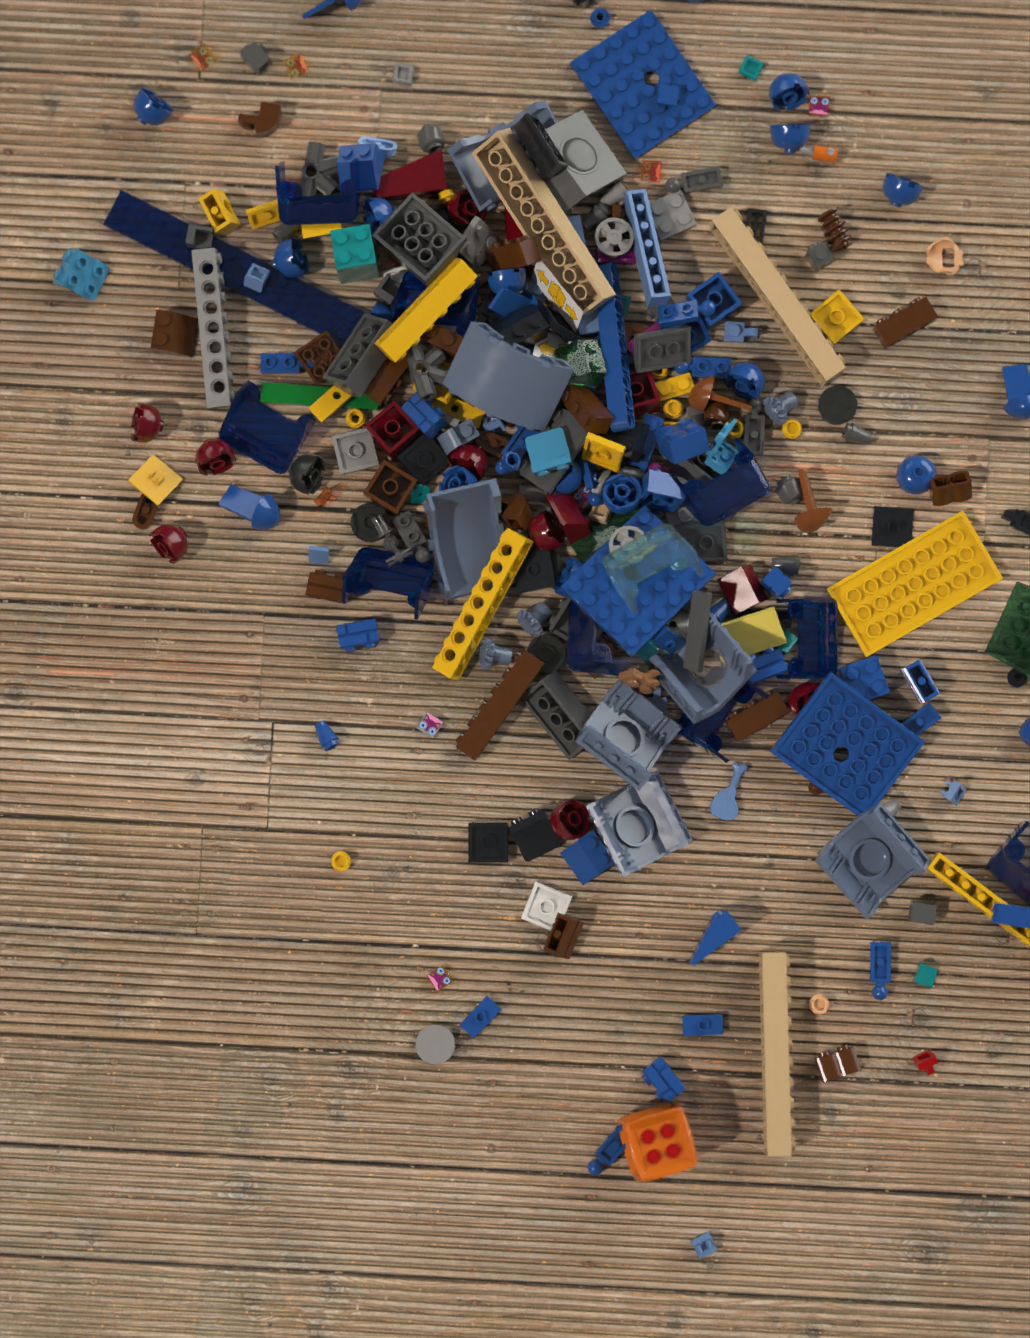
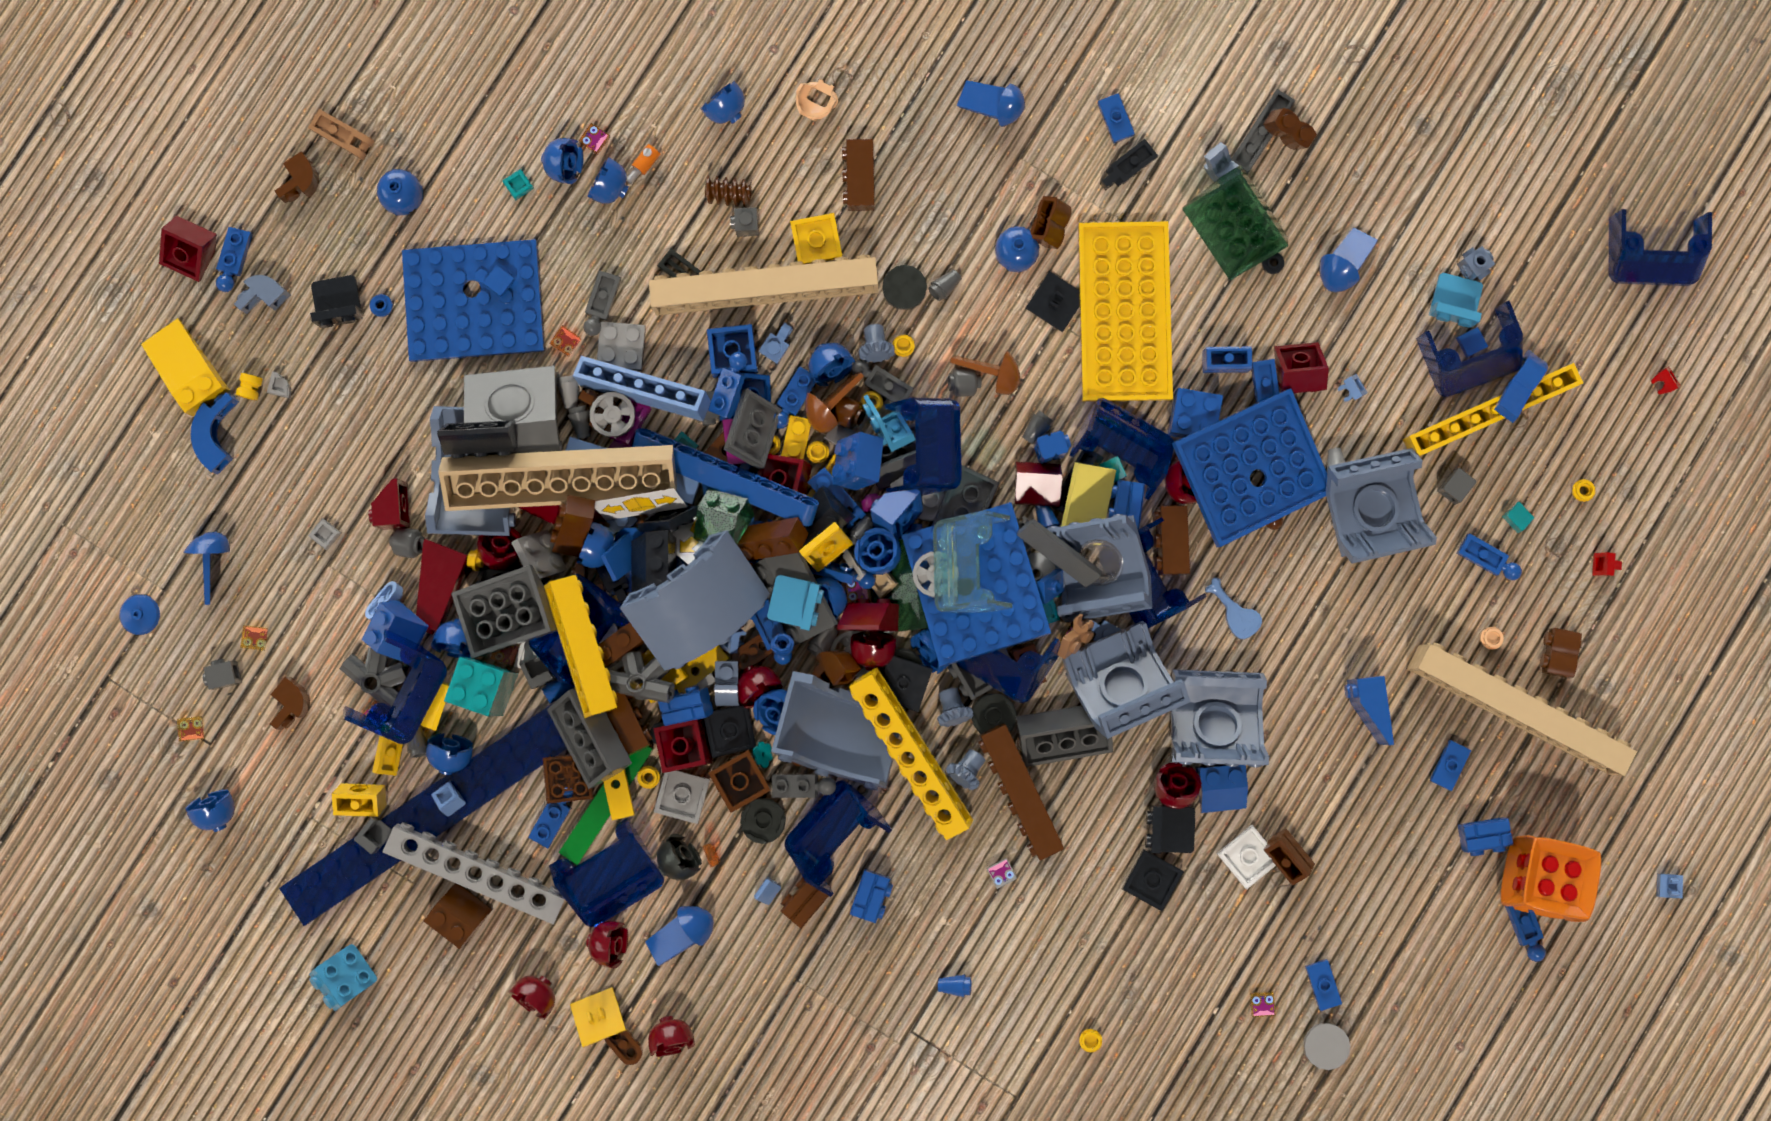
camera: 65 degrees left, 0 degrees up
(390, 541) = (794, 811): dark grey pin -> none
(451, 111) = (391, 507): none -> dark red slope
(946, 743) = (1301, 367): none -> dark red slope
(981, 1014) = (1590, 490): none -> yellow plate

